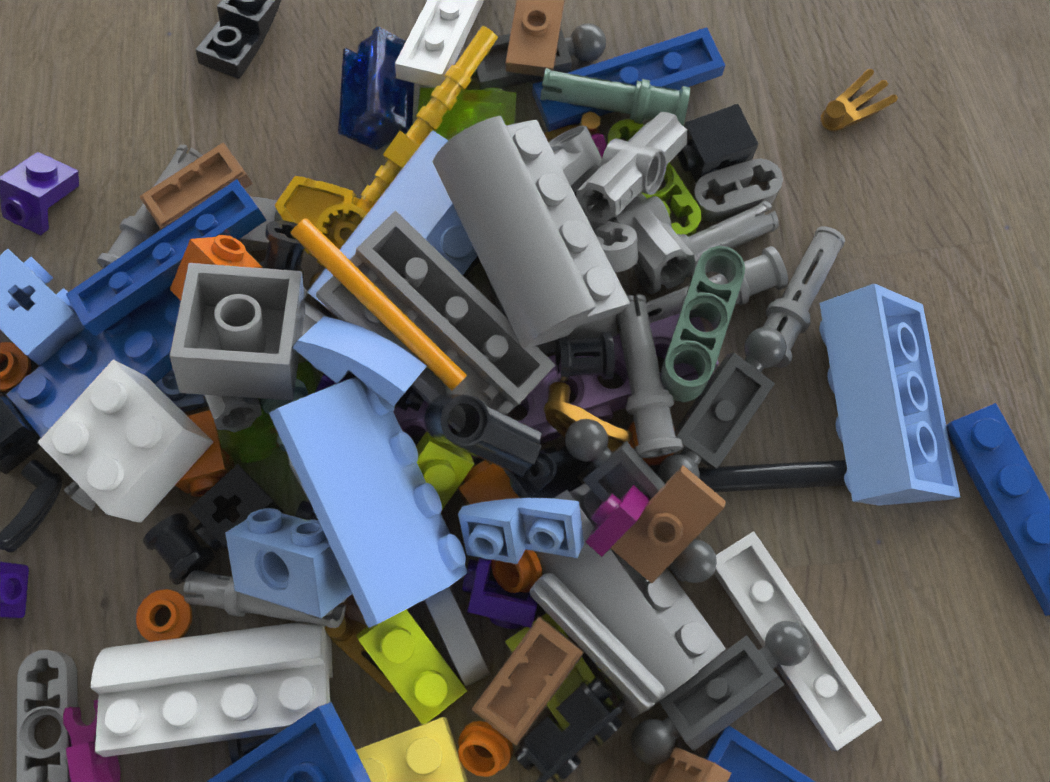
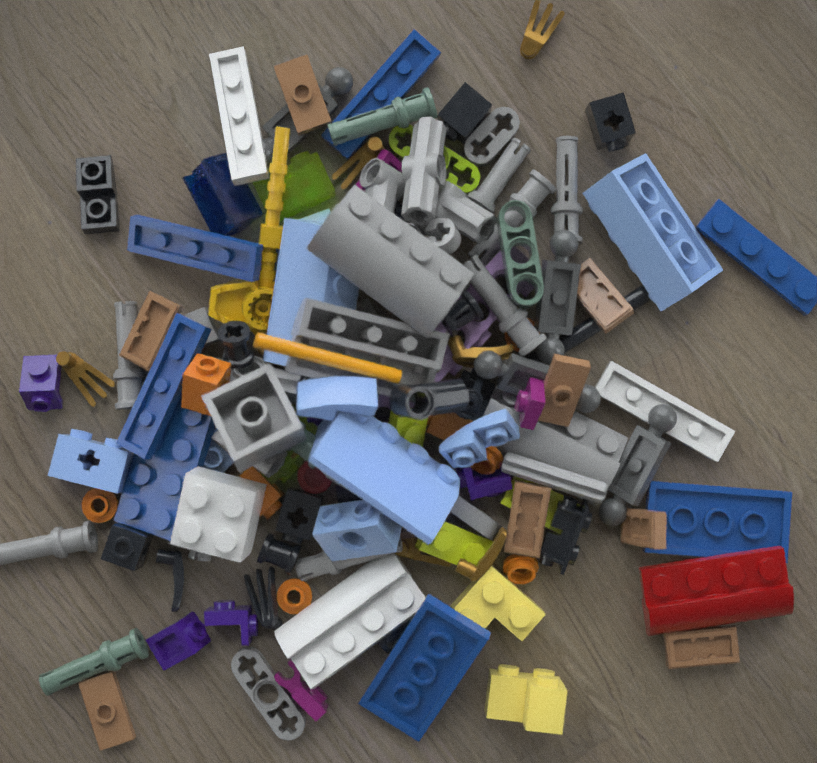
camera: 30 degrees left, 15 degrees up
(63, 589) = (226, 613): none -> dark purple bracket
(88, 196) = (76, 368): none -> pearl gold piece
(121, 600) = (267, 607): none -> black piece
(280, 480) = (312, 480): none -> red tile
(310, 127) = (195, 248): none -> blue plate
(416, 714) = (473, 571): none -> pearl gold piece
(780, 445) = (601, 298): none -> medium nougat plate
(896, 241) = (617, 110): none -> black brick

